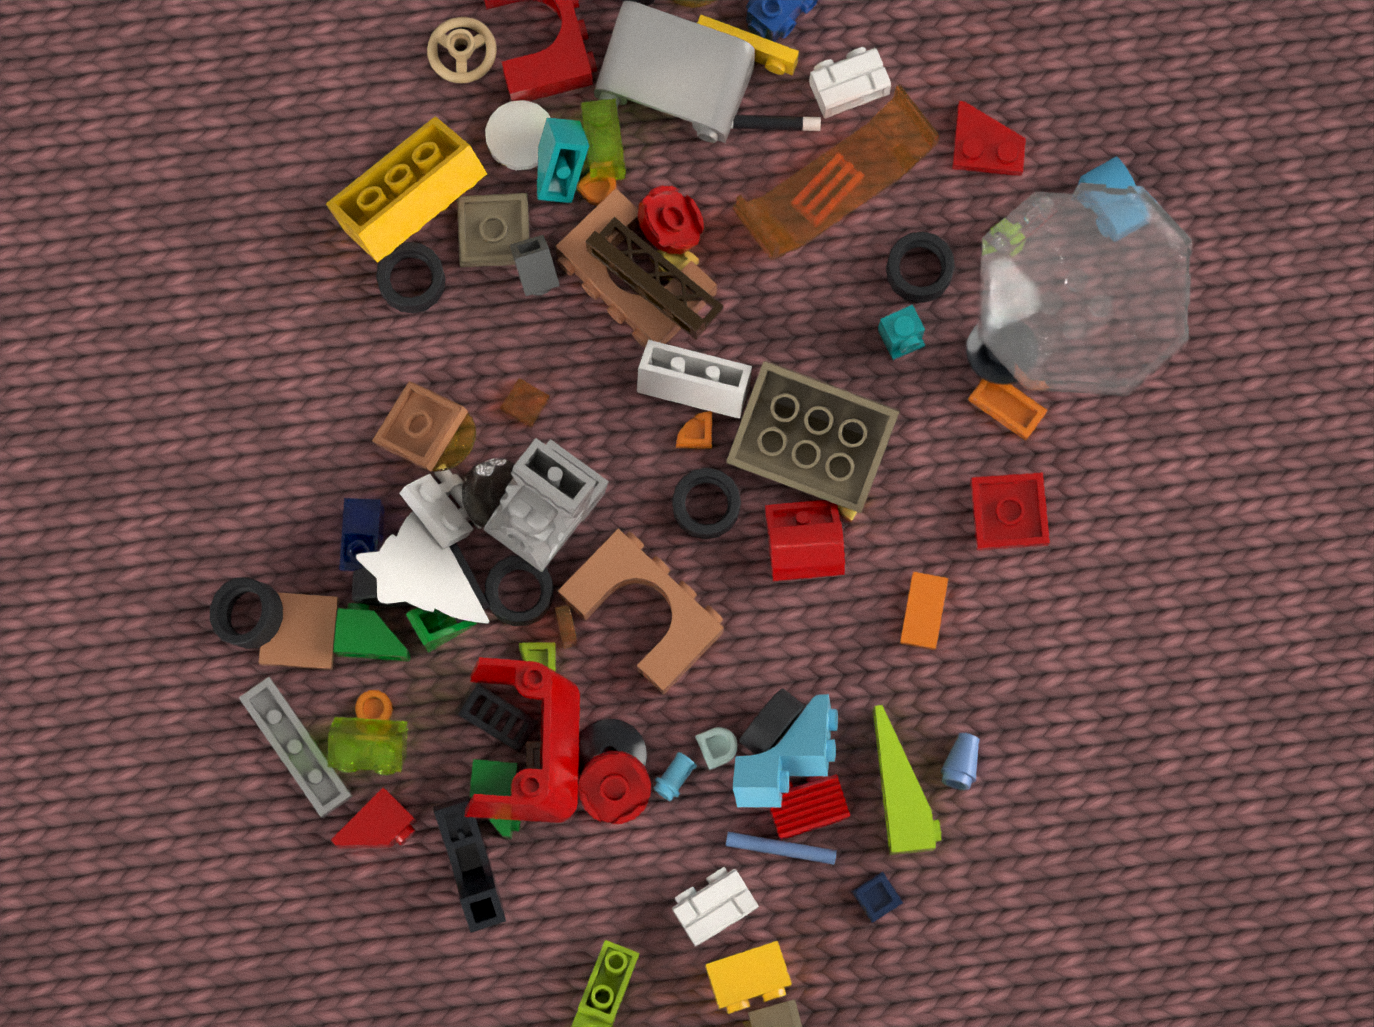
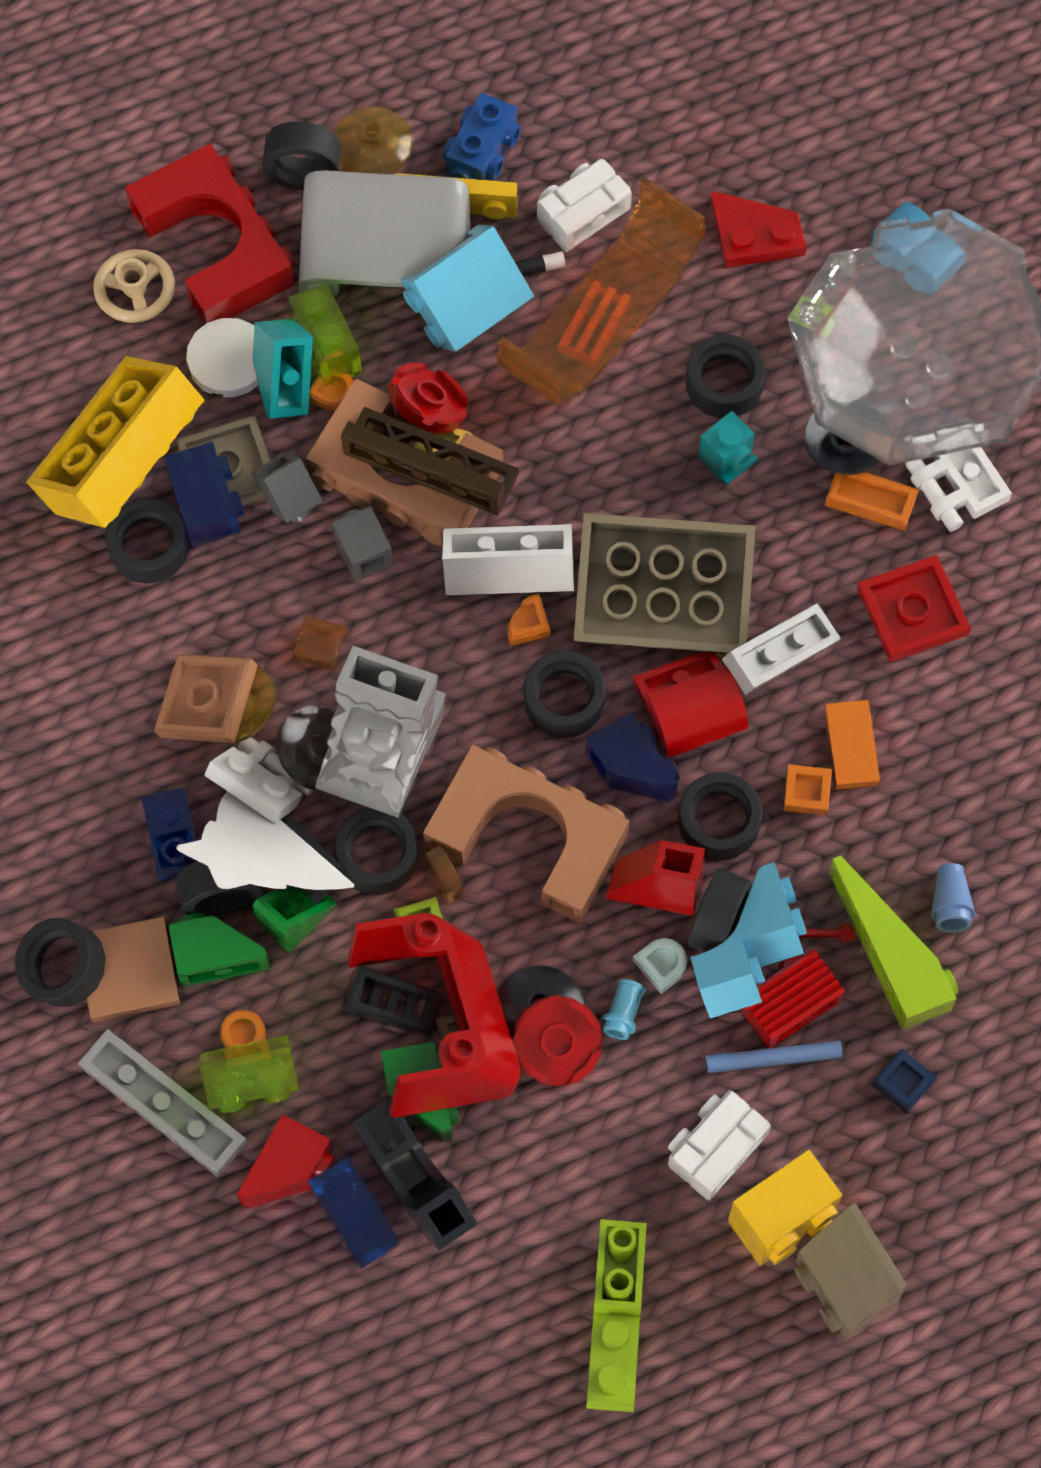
camera: 15 degrees left, 10 degrees down
(417, 878) = (354, 1212): none -> clear blue slope
(465, 253) = (203, 493): none -> clear blue brick
(581, 328) = (362, 543): none -> dark grey brick
(729, 136) = (467, 289): none -> medium azure panel
(734, 679) = (660, 877): none -> red slope
(740, 574) = (629, 761): none -> clear blue slope
(811, 616) = (720, 784): none -> black tyre
(868, 764) = (844, 933): none -> red hinge
(875, 639) = (807, 790): none -> orange plate
(890, 518) = (781, 649): none -> plate
(1095, 418) = (971, 476): none -> white plate

